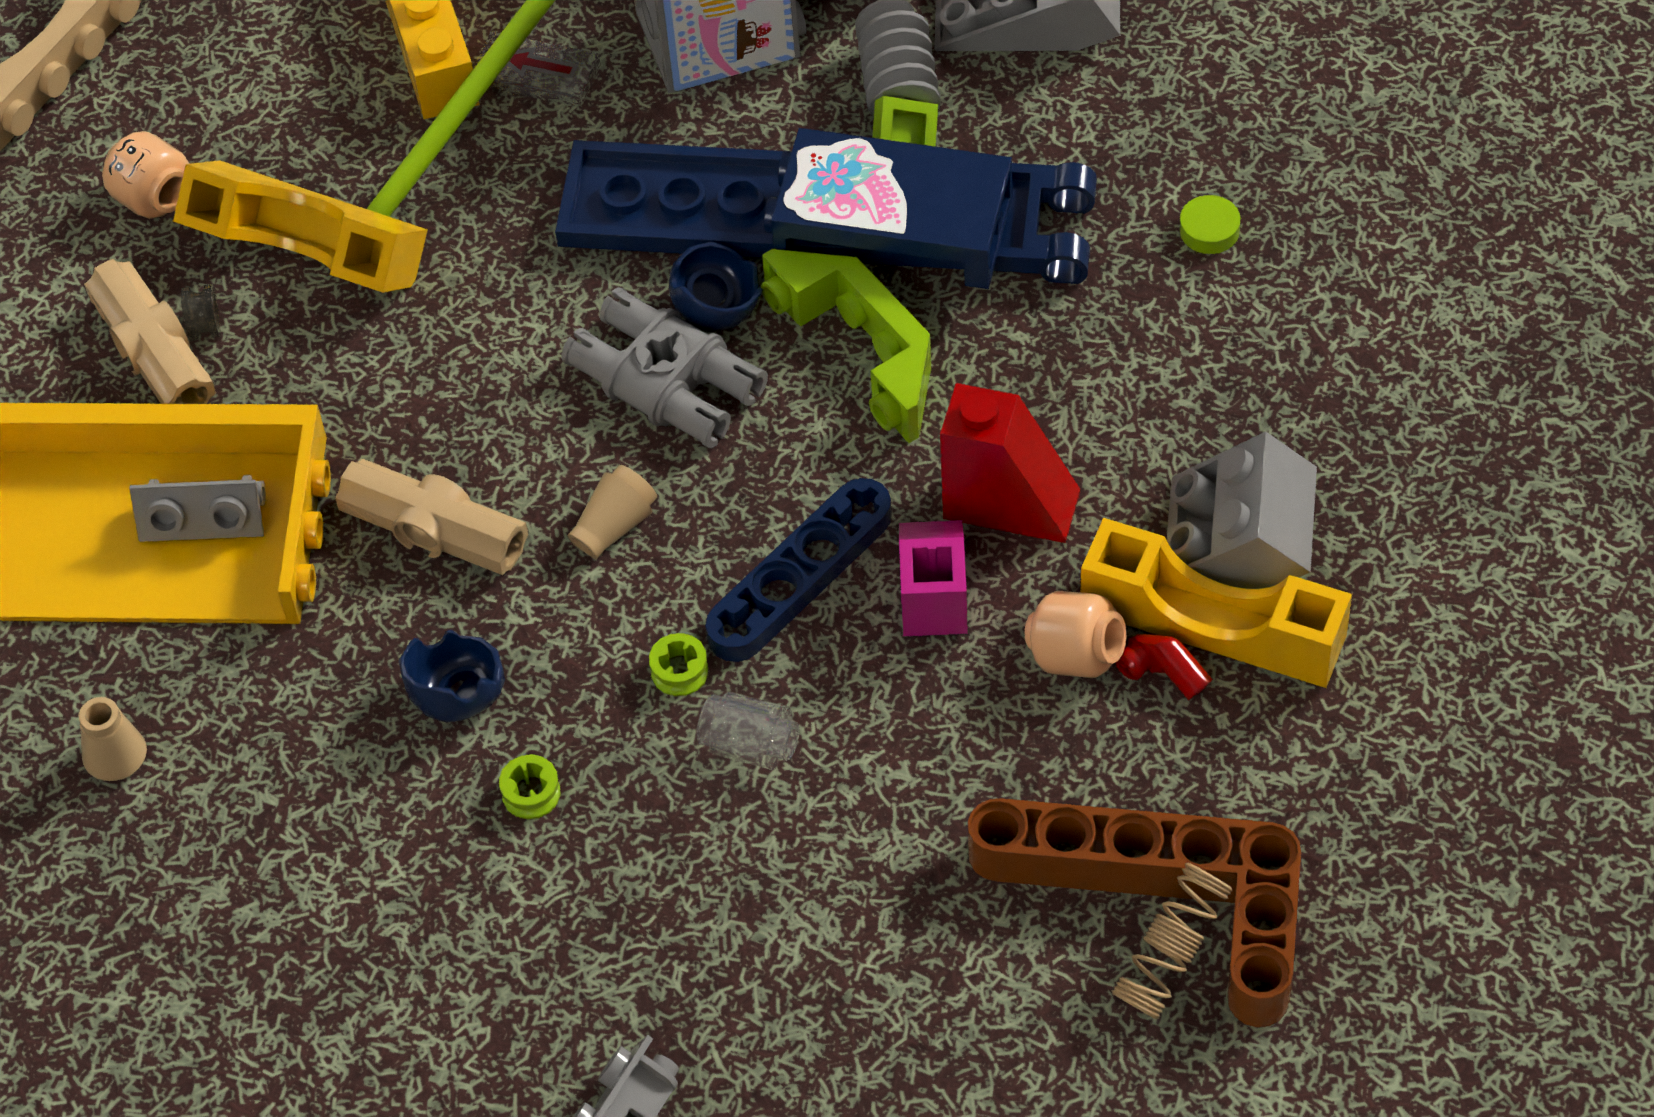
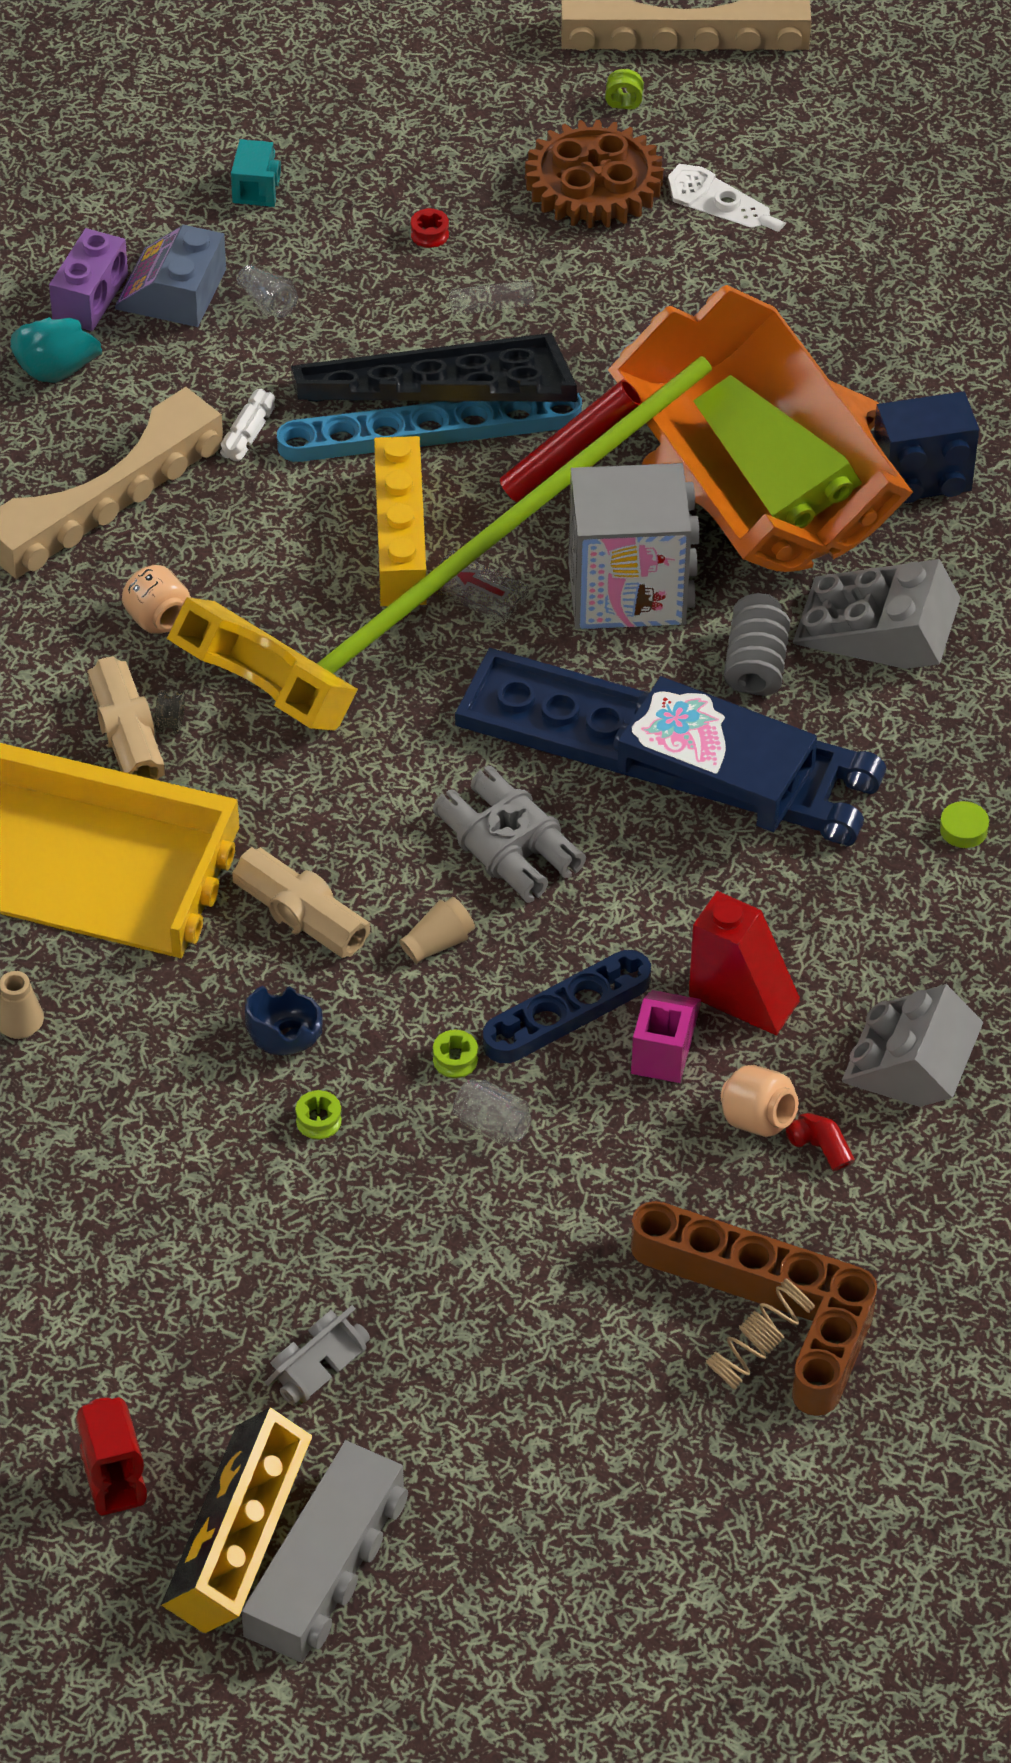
camera: 10 degrees right, 5 degrees down
(198, 509) = (128, 856): light grey hinge -> none
(707, 277) = (562, 774): dark blue hair -> none
(815, 282) = (644, 798): lime slope -> none
(905, 120) = (749, 691): lime plate -> none
(1280, 628) = (919, 1134): yellow arch -> none

